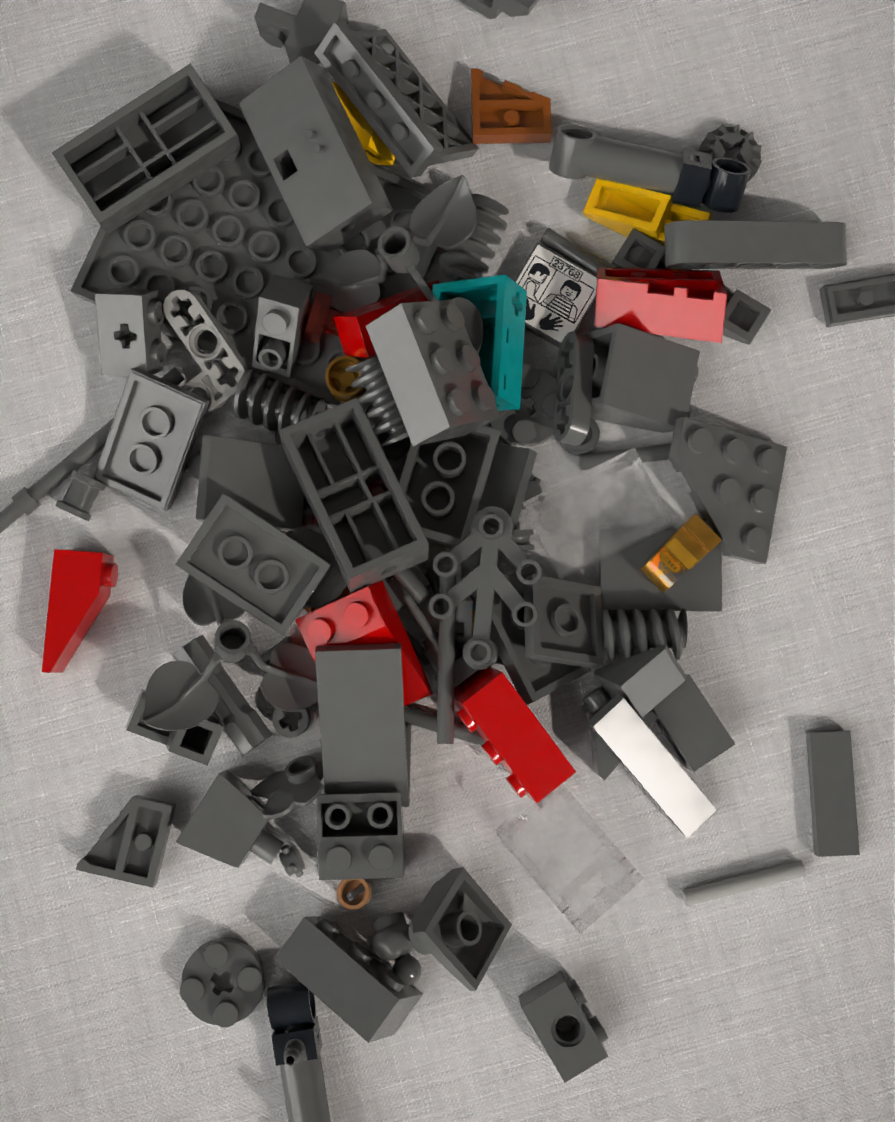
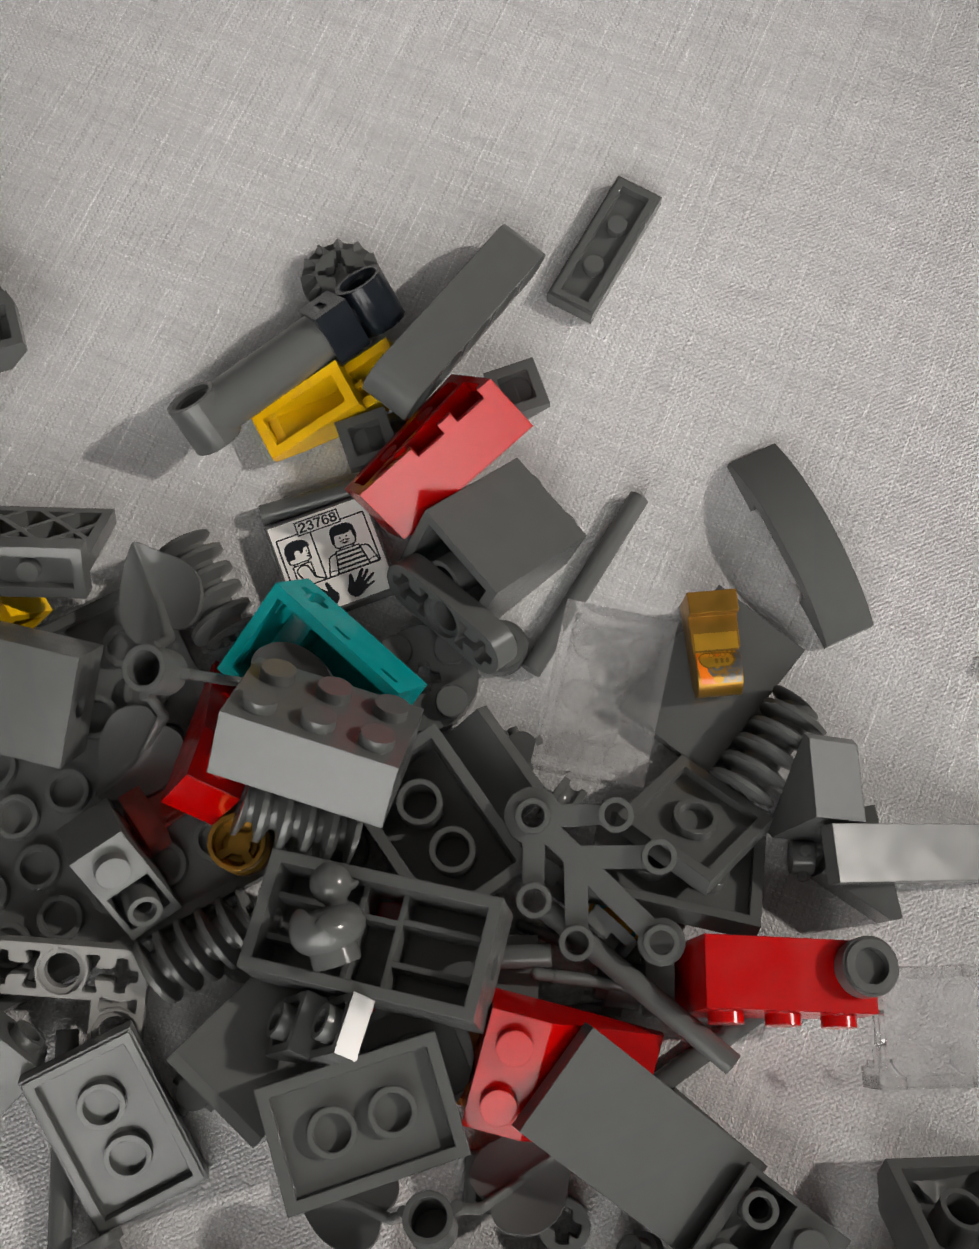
camera: 55 degrees left, 10 degrees down
(281, 501) = (318, 1029): none -> dark grey slope
(337, 466) = (330, 932): none -> dark grey animal
(507, 113) = (105, 451): dark orange wing -> none
(557, 777) = (866, 967): none -> dark grey tile
(692, 726) = (911, 778): dark grey panel -> none
(731, 484) = (680, 534): dark grey plate -> none
(789, 561) = (806, 542): none -> dark grey slope

